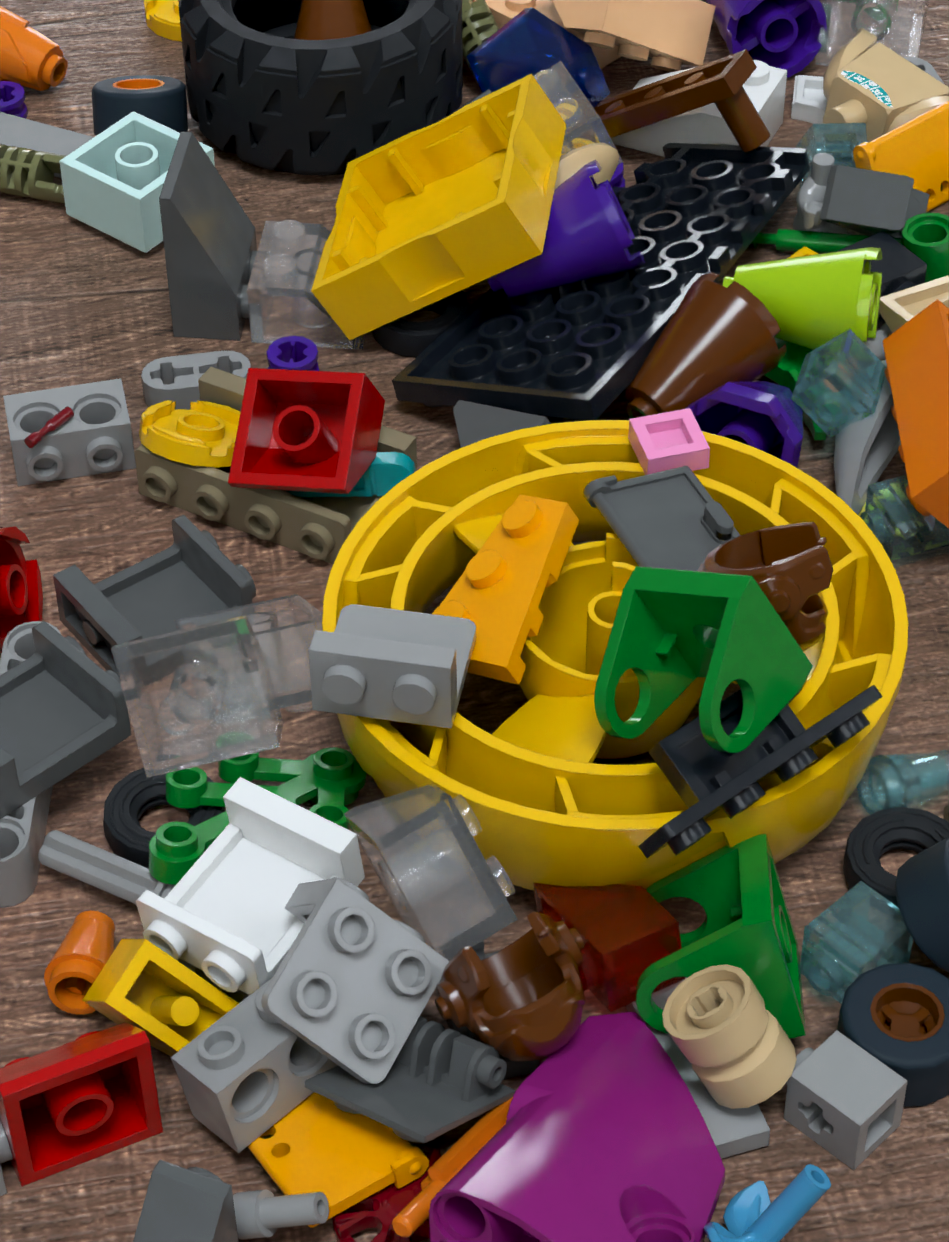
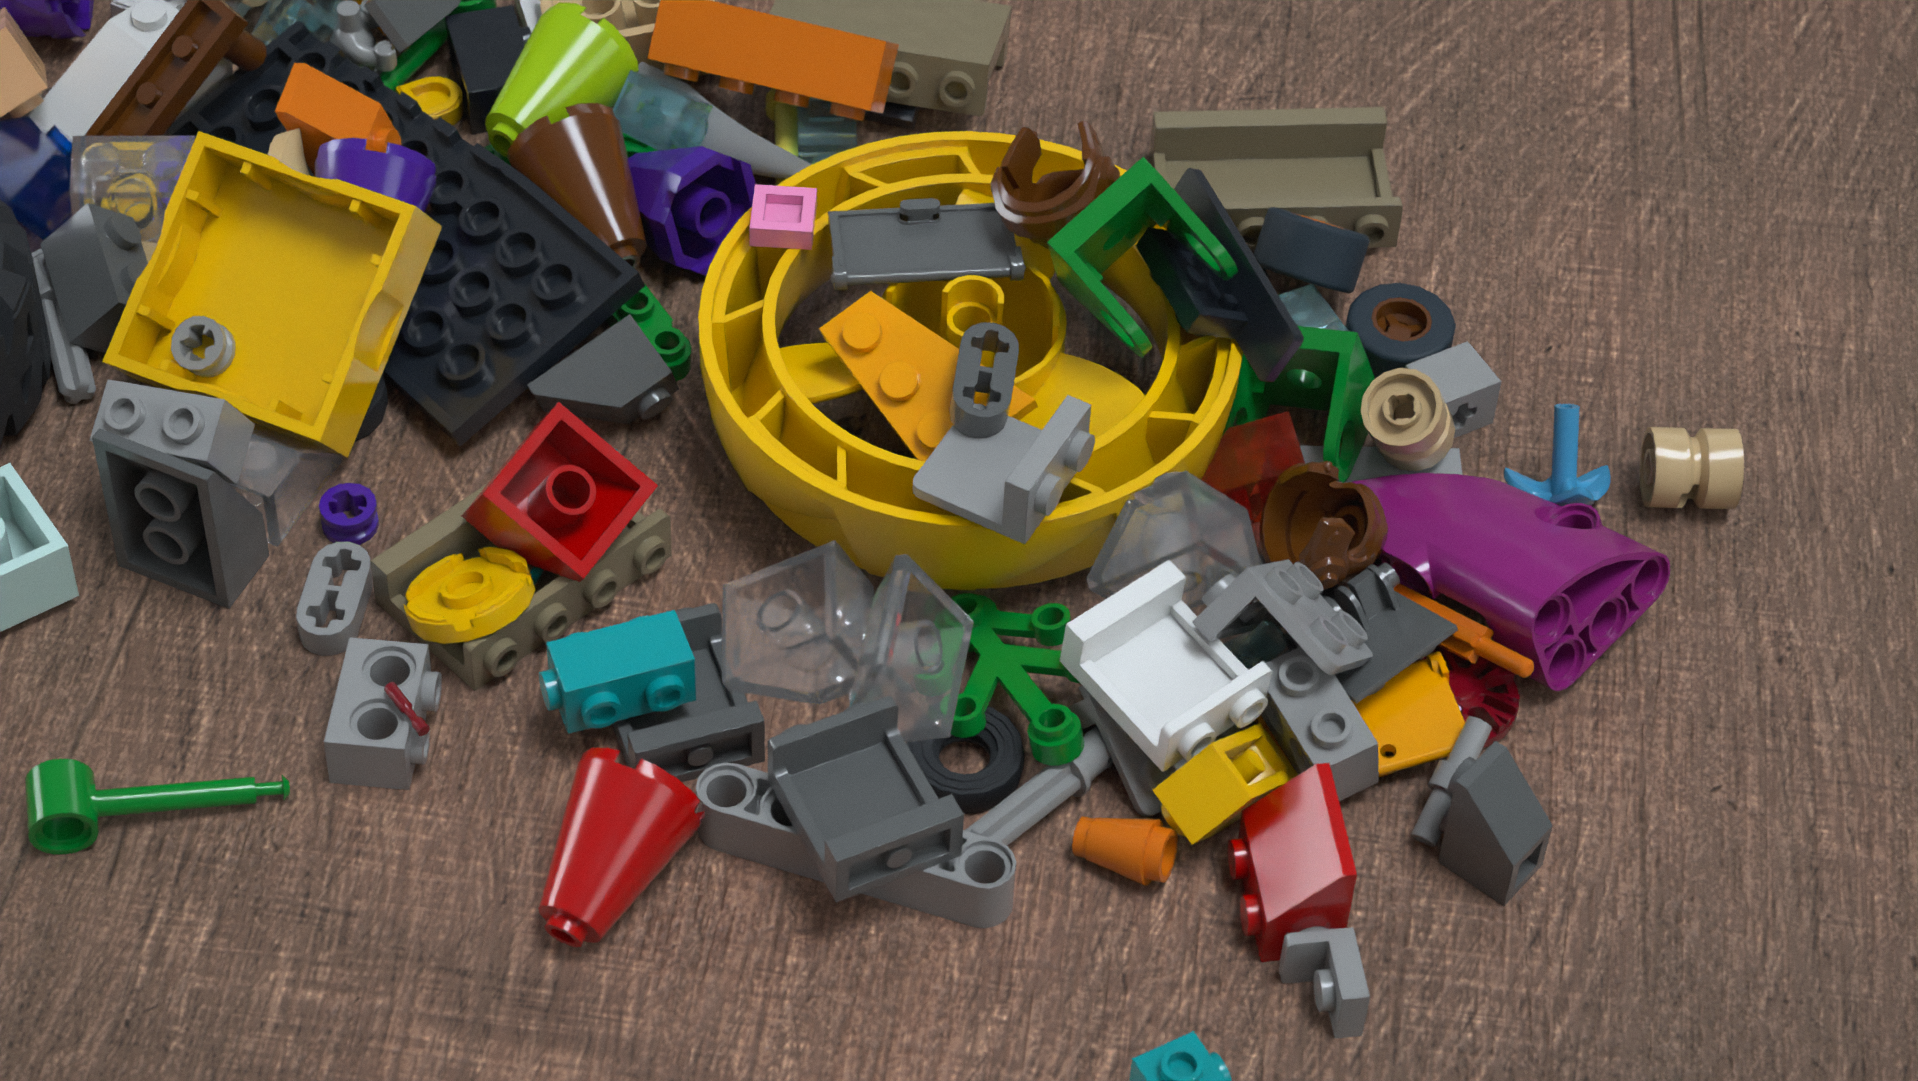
camera: 75 degrees left, 5 degrees up
(138, 539) = (619, 672): none -> teal brick
(258, 200) = (179, 424): none -> light grey brick
(398, 210) = (189, 336): none -> light grey bush
(490, 610) = (974, 378): none -> dark grey beam
(654, 181) = (331, 111): none -> orange slope

